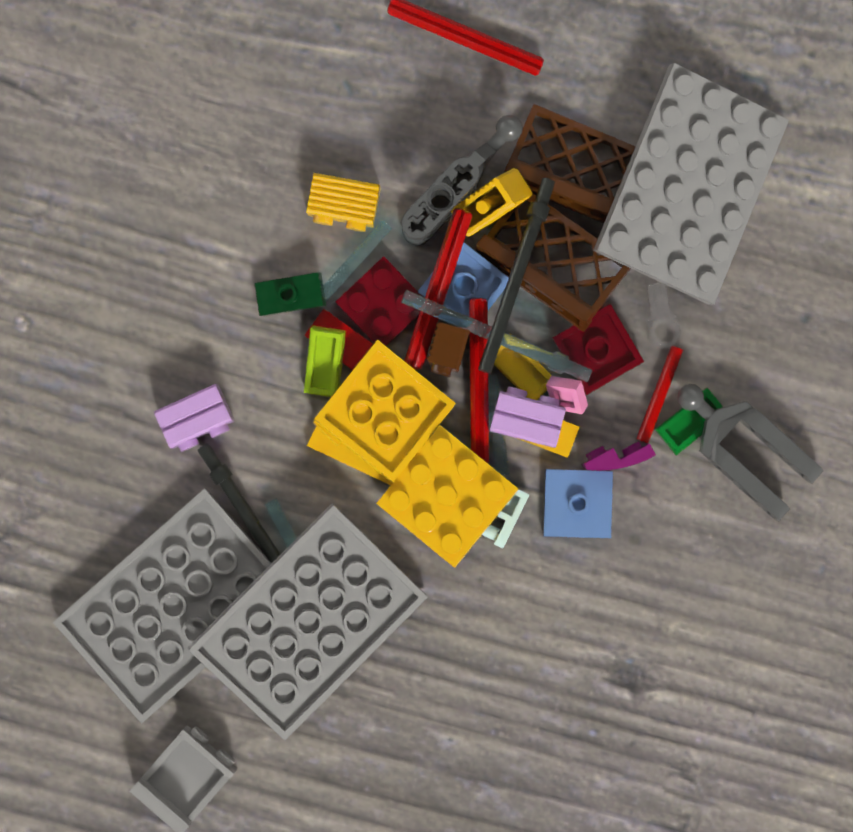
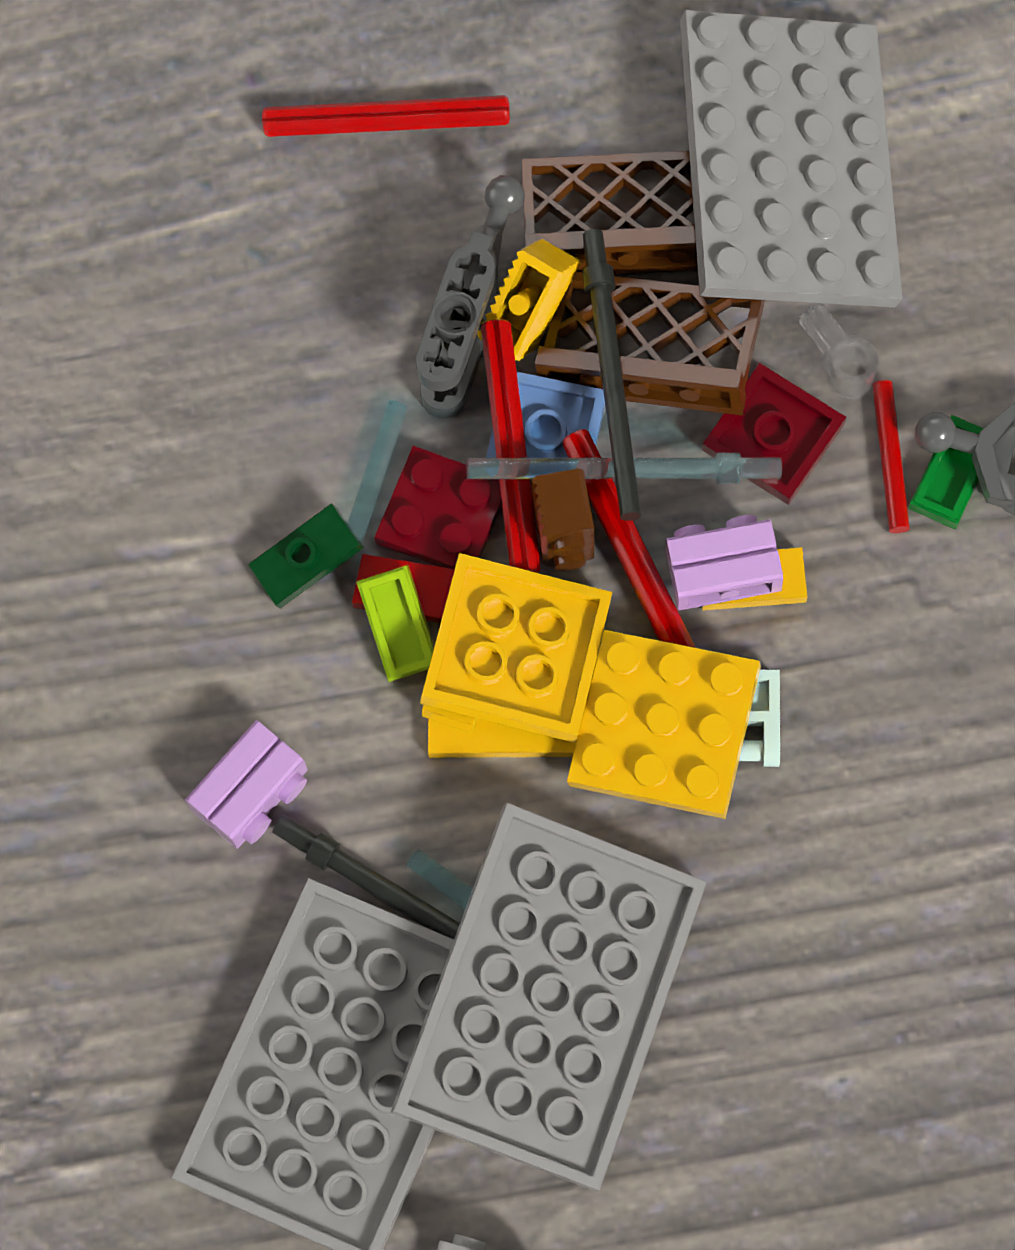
camera: 25 degrees left, 15 degrees down
(343, 201) = (322, 398): yellow brick -> none
(498, 440) = (694, 617): clear light blue bar -> none
(522, 372) = (674, 504): yellow tile -> none
(569, 392) = (765, 501): bright pink plate -> none
(578, 503) = (854, 655): medium blue plate -> none
(602, 459) = (869, 571): magenta slope -> none

